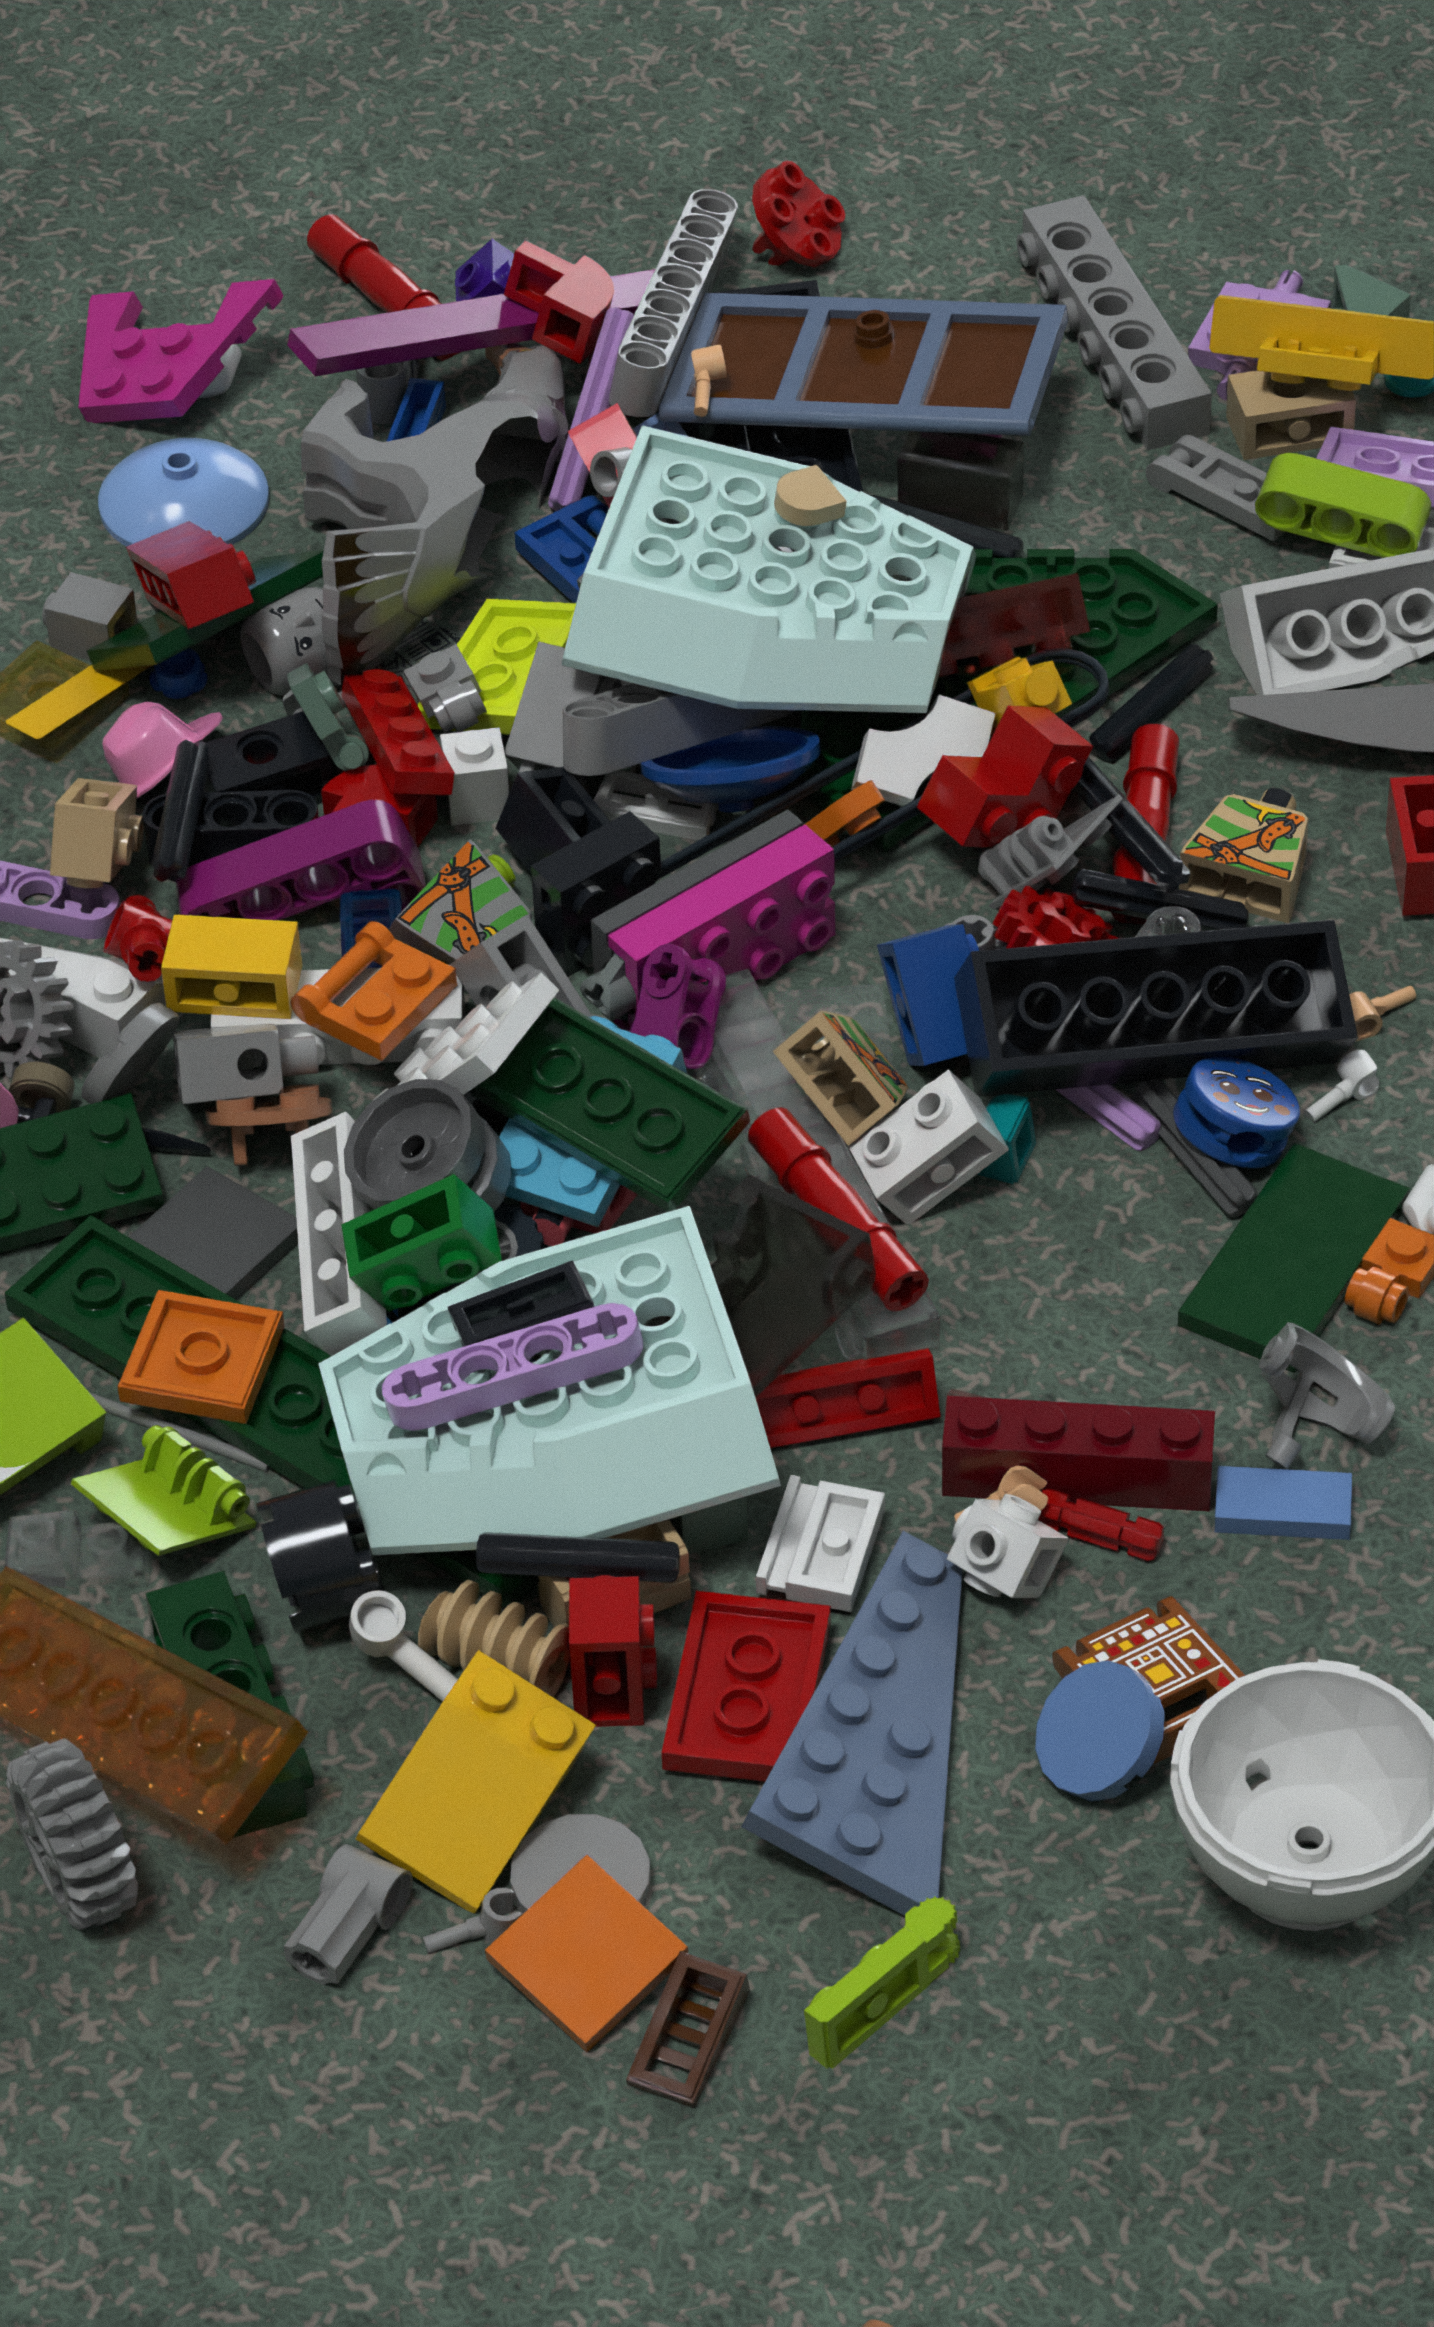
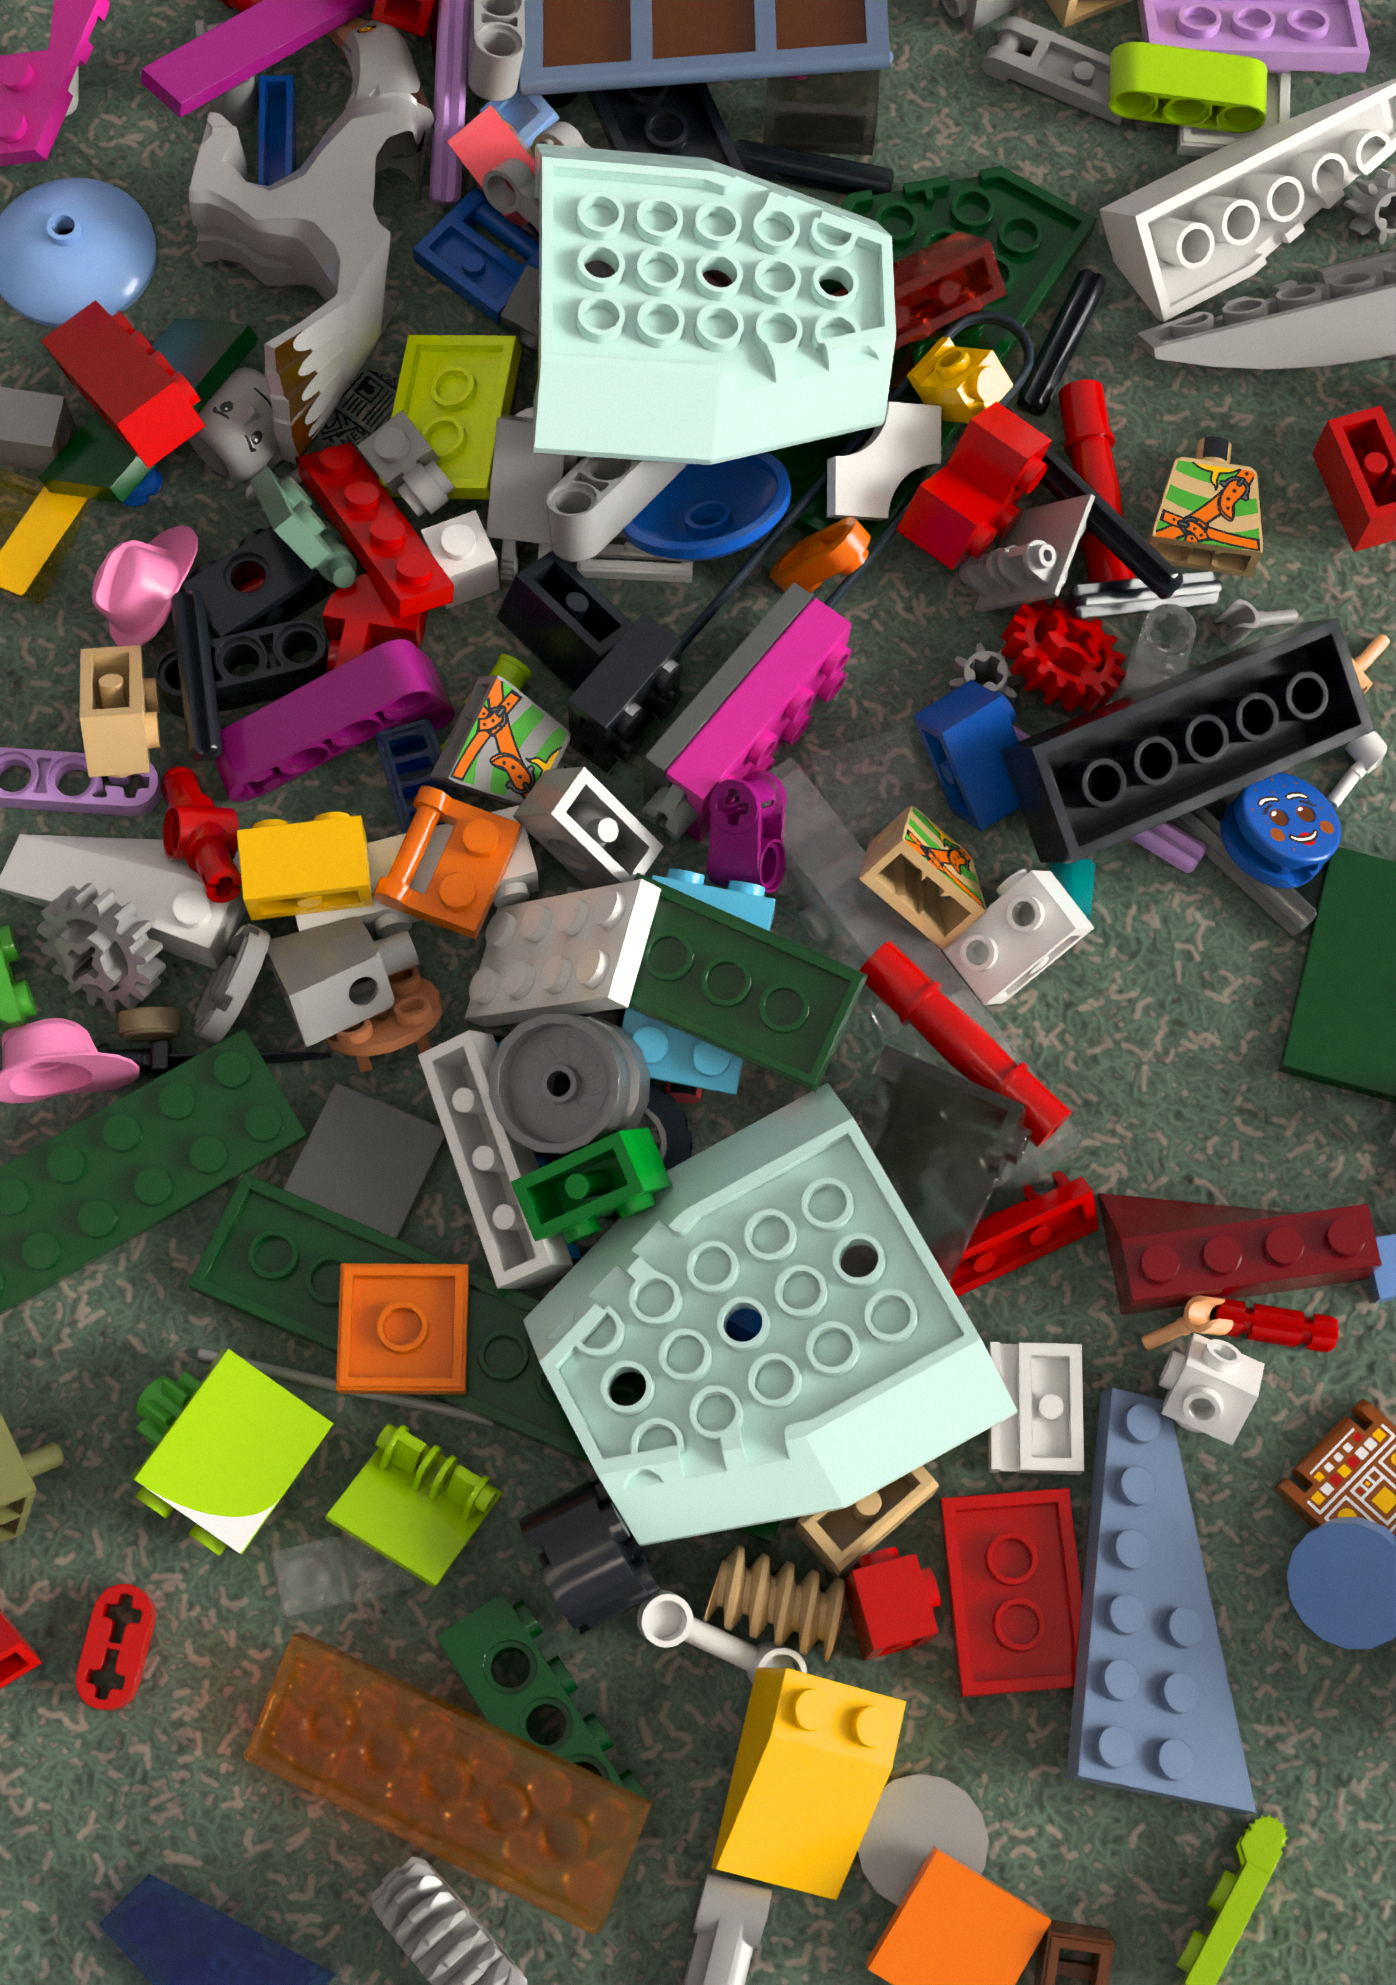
camera: 20 degrees left, 25 degrees up
(487, 1925) = (839, 1923): light grey hand -> none
(510, 1358) = (736, 1346): lavender beam -> none
(521, 1304) = (744, 1301): black tile -> none
(577, 1557) = (845, 1529): black axle -> none
(708, 366) = (558, 31): light nougat hand -> none
(808, 498) = (728, 217): tan tile -> none

